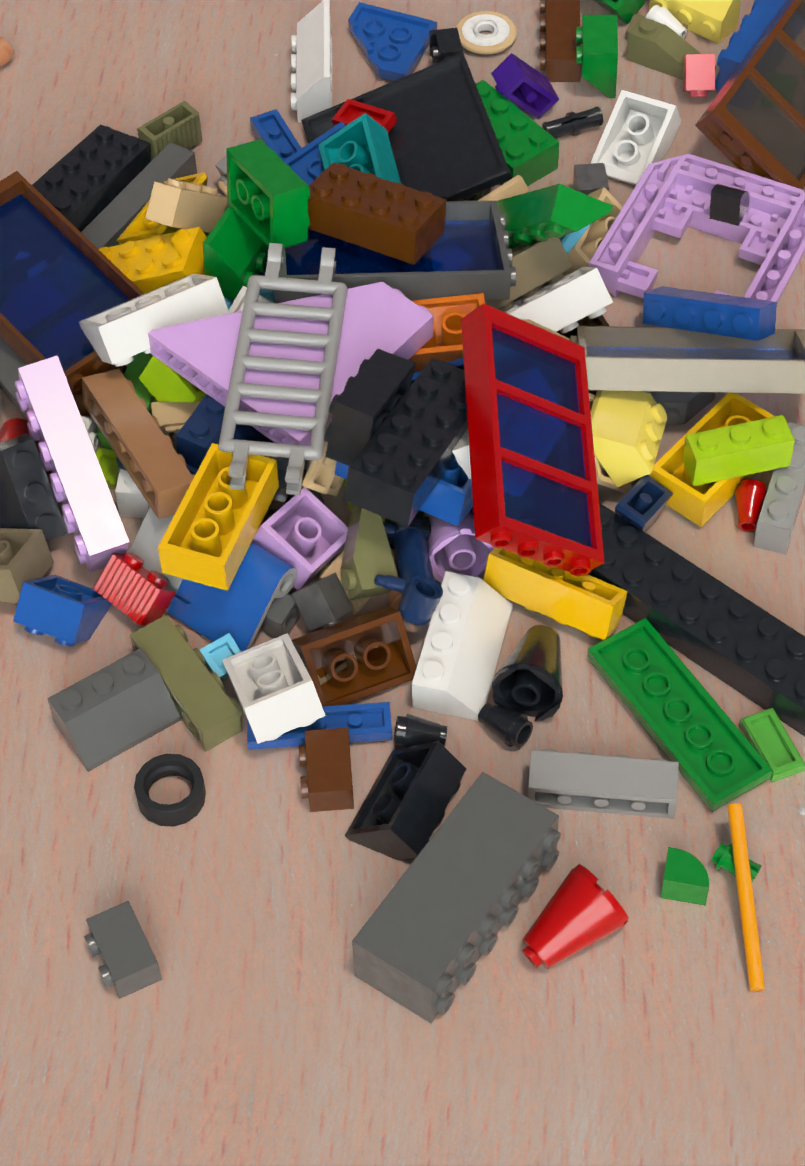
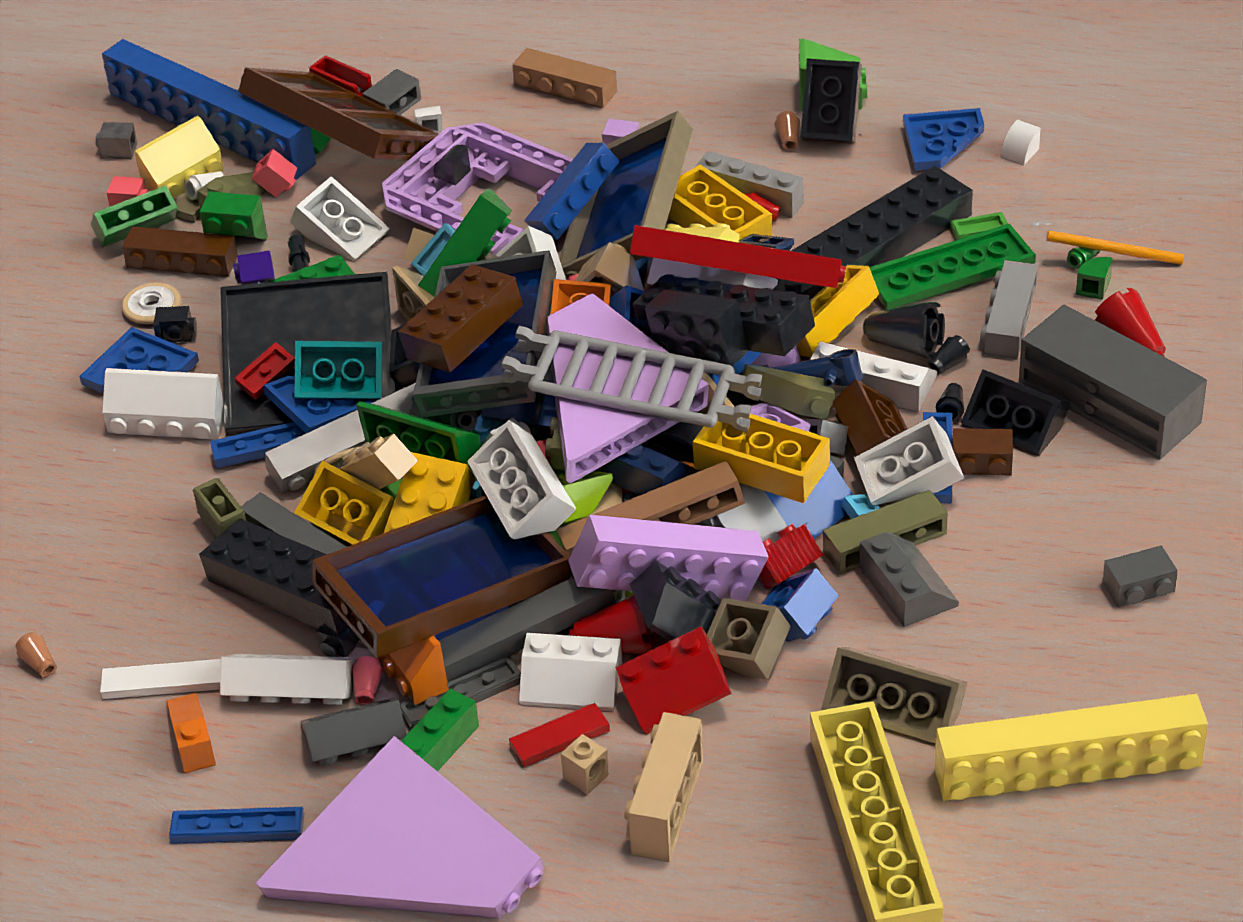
camera: 80 degrees left, 10 degrees down
(165, 766) = (988, 563): black tyre -> none
(267, 194) = (431, 369): green brick -> none
(589, 177) = (385, 252): flat silver brick -> none
(738, 450) = (736, 180): lime brick -> none

